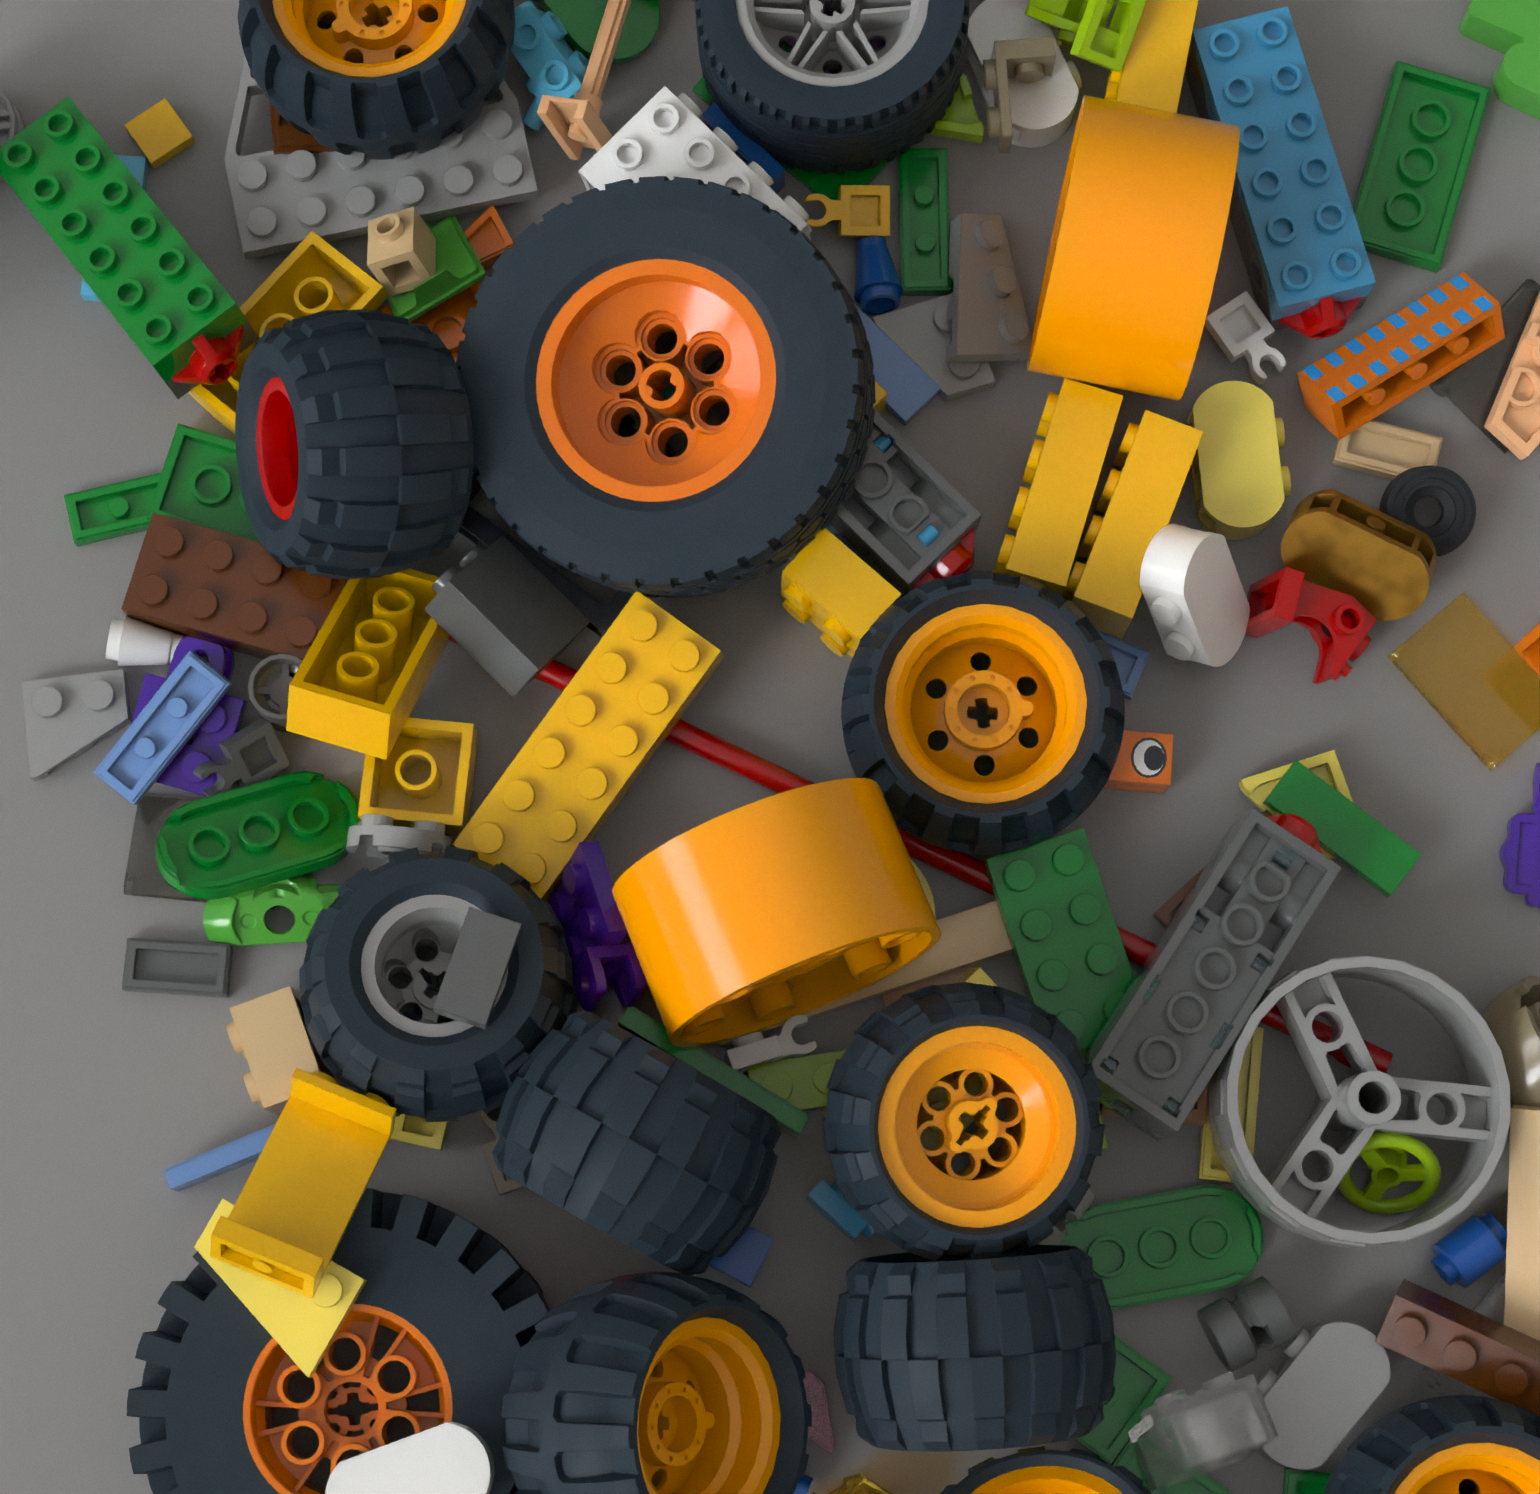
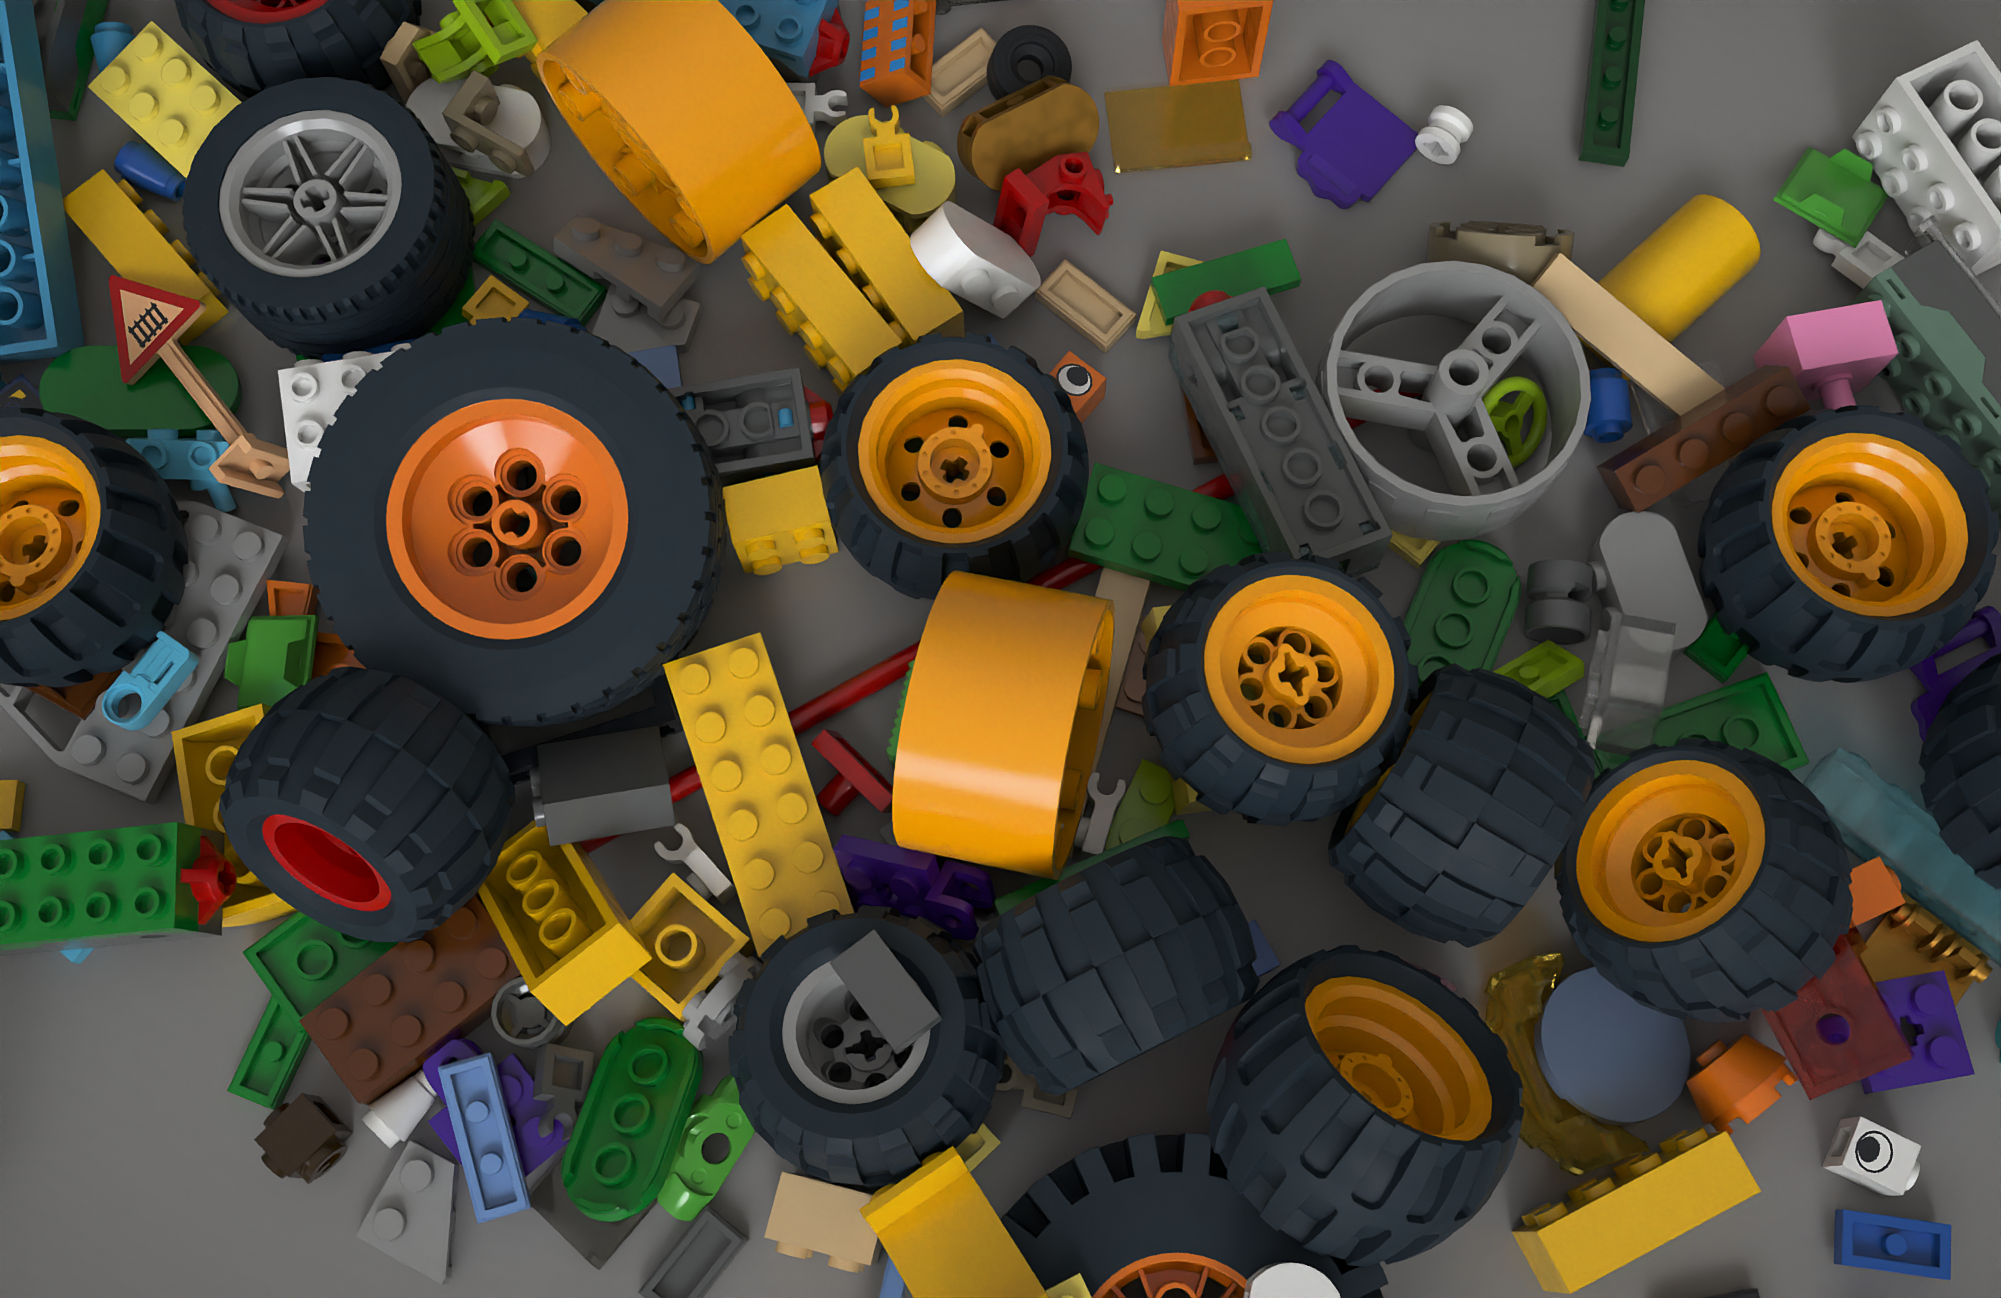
camera: 50 degrees left, 5 degrees down
(67, 584) = (303, 1139): none -> dark brown brick
(344, 183) = (154, 678): none -> medium azure piece
(401, 250) = (244, 670): tan brick -> none
(495, 751) = (705, 876): none -> white plate
(666, 813) = (854, 776): none -> red tile
(834, 1207) = (1263, 851): dark azure bracket -> none
(1158, 1343) = (1545, 669): none -> lime plate
(1236, 718) = (1085, 306): none -> tan tile
(1242, 448) = (888, 153): none -> yellow plate

